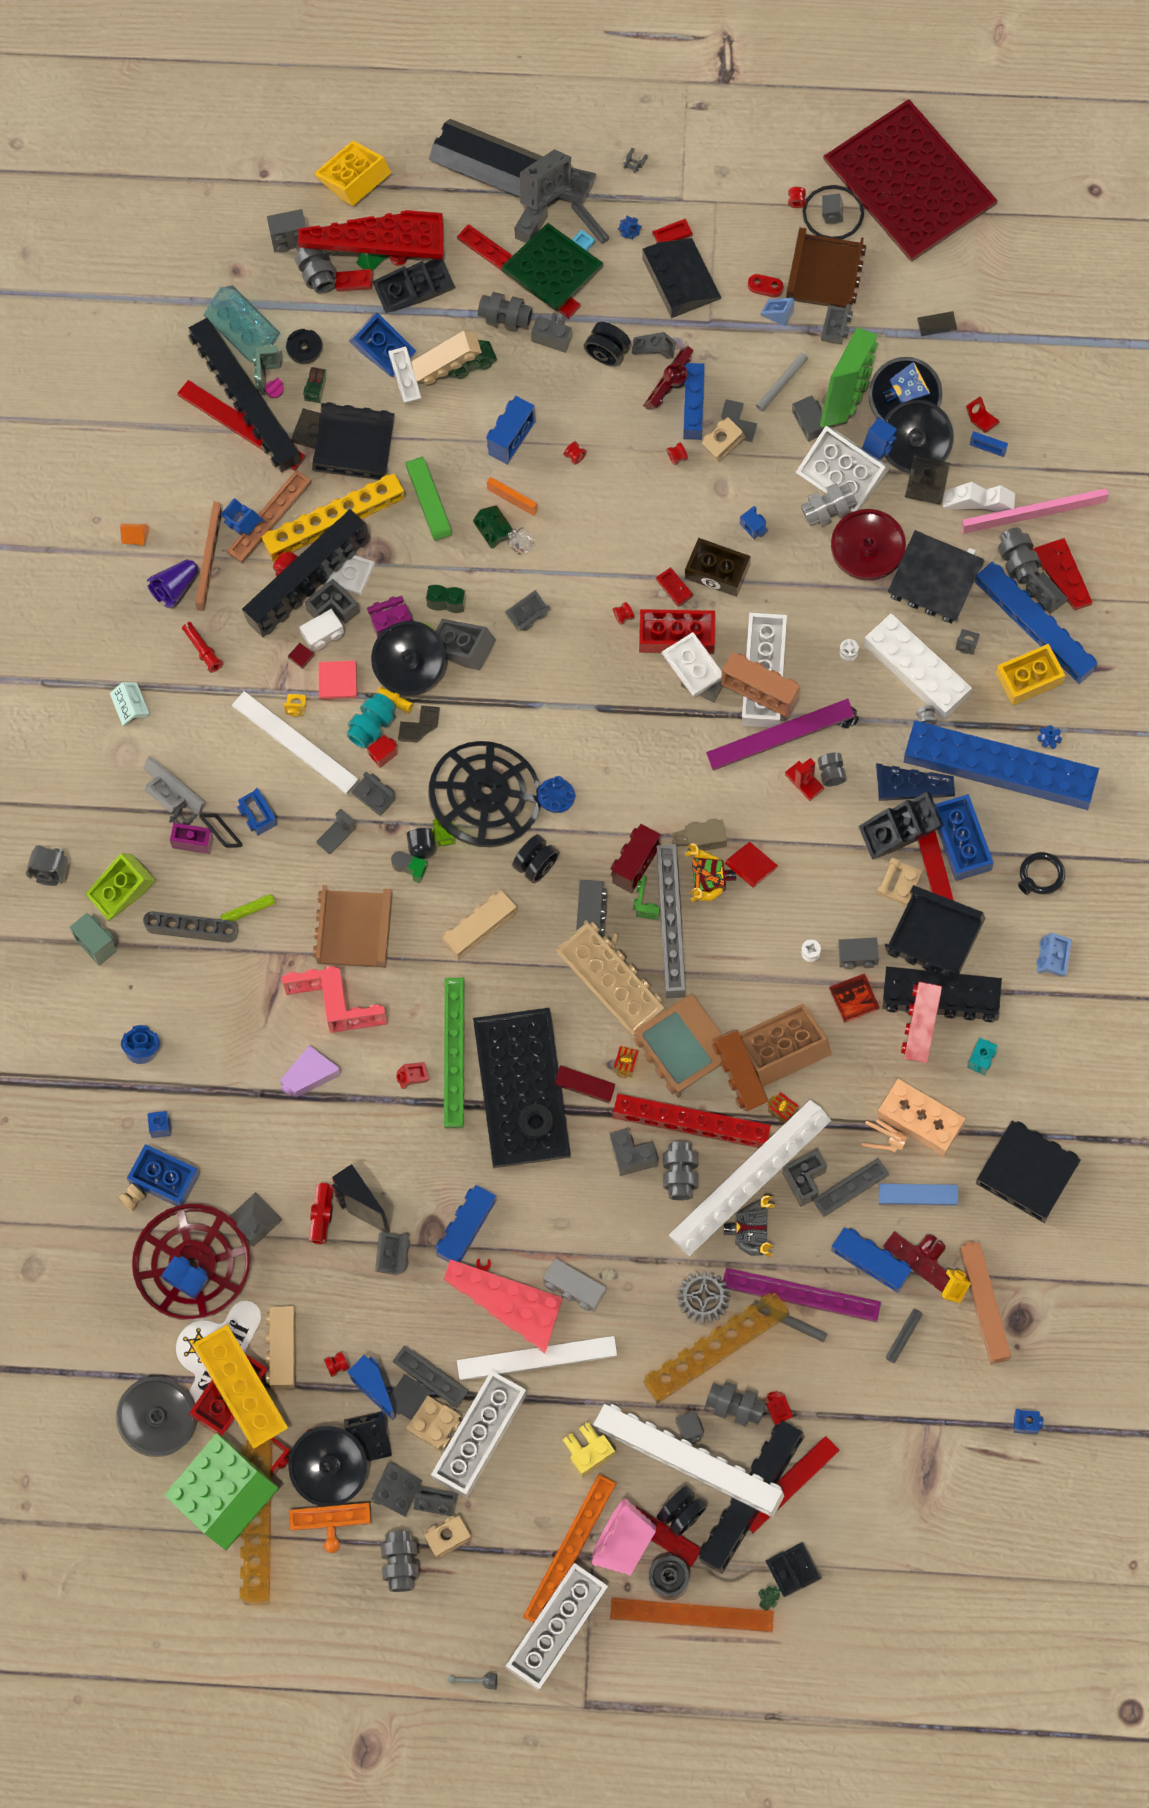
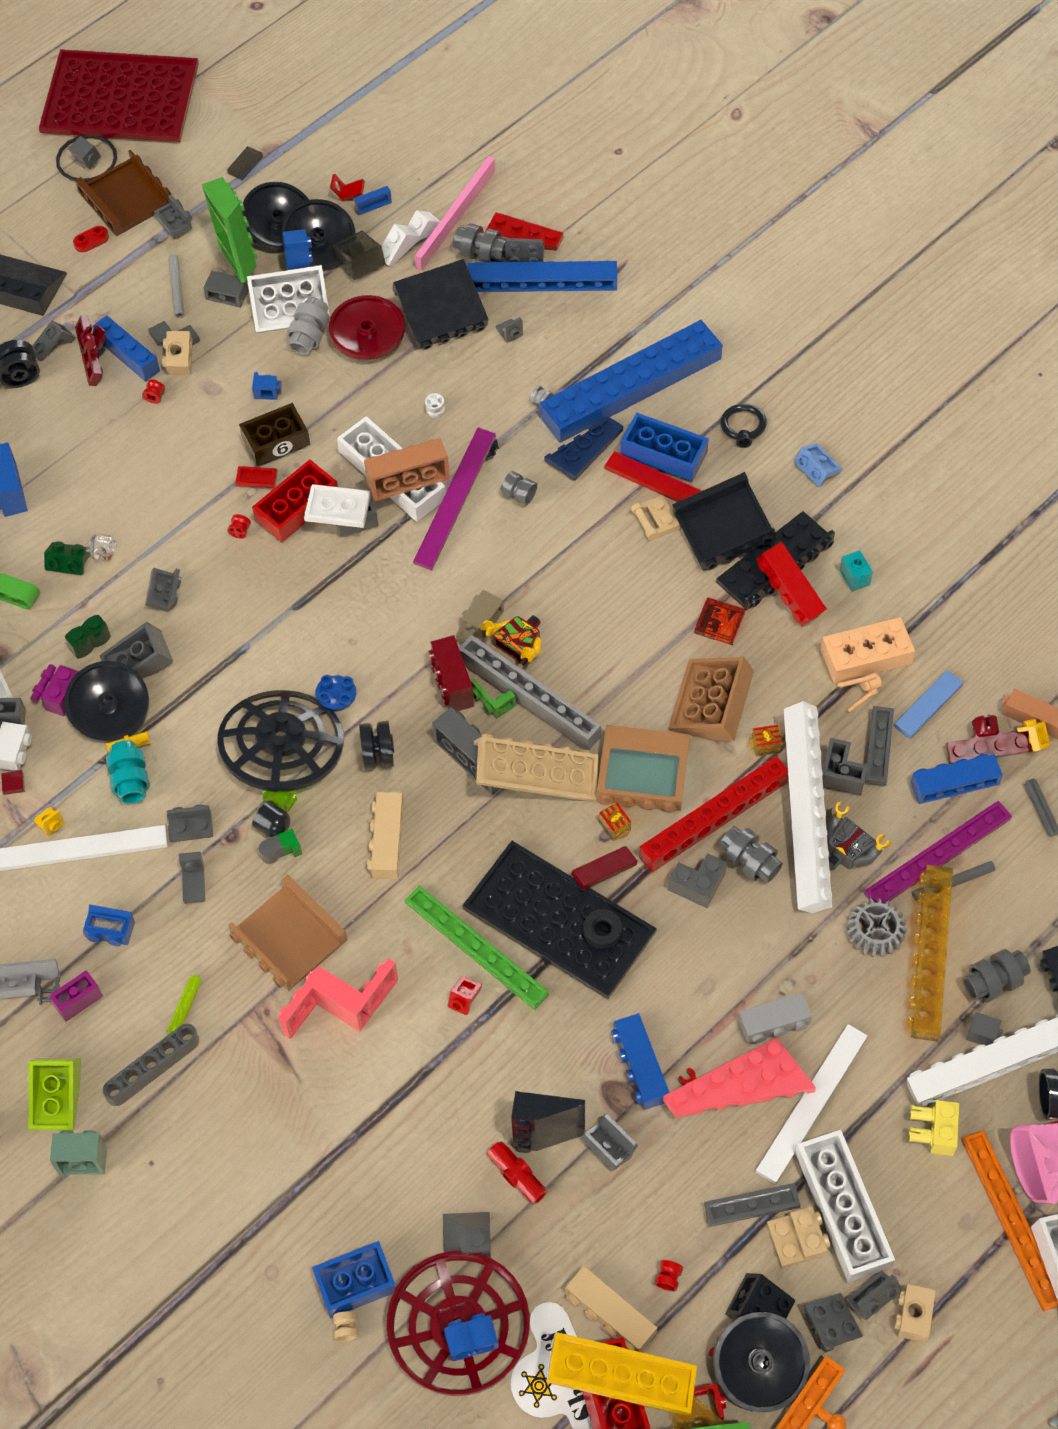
camera: 50 degrees left, 10 degrees down
(140, 1044) = (215, 1195): blue cone -> none
(159, 1124) = (302, 1243): blue brick -> none
(239, 844) = (112, 966): black piece -> none
(308, 1073) = (380, 1076): lavender slope -> none
(337, 680) = (64, 772): coral tile -> none
(367, 1378) = (719, 1257): blue slope -> none
(382, 750) = (161, 786): red brick -> none
(399, 1553) = (914, 1378): dark grey piece -> none
(408, 1397) = (752, 1241): dark grey piece -> none
(416, 731) = (170, 751): clear smoke tile -> none
(512, 496) = (58, 525): orange tile -> none
(575, 453) = (74, 456): red wheel -> none
(740, 1070) = (707, 740): dark orange brick -> none
(751, 864) = (539, 601): red tile -> none
(777, 1407) = (1027, 945): red bracket -> none
(779, 310) = (120, 243): medium blue slope -> none
(797, 197) = (49, 167): red wheel -> none
(803, 778) = (508, 514): red bracket -> none
(812, 954) = (650, 623): white wheel -> none
(858, 953) = (686, 587): dark grey brick -> none
(901, 825) = (613, 478): black slope -> none
(907, 385) = (275, 204): blue torso -> none
(917, 666) = (495, 372): white brick -> none
(1028, 1171) = (982, 613): black panel -> none
(1030, 674) = (580, 308): yellow brick -> none
(1049, 737) = (639, 337): blue plant -> none

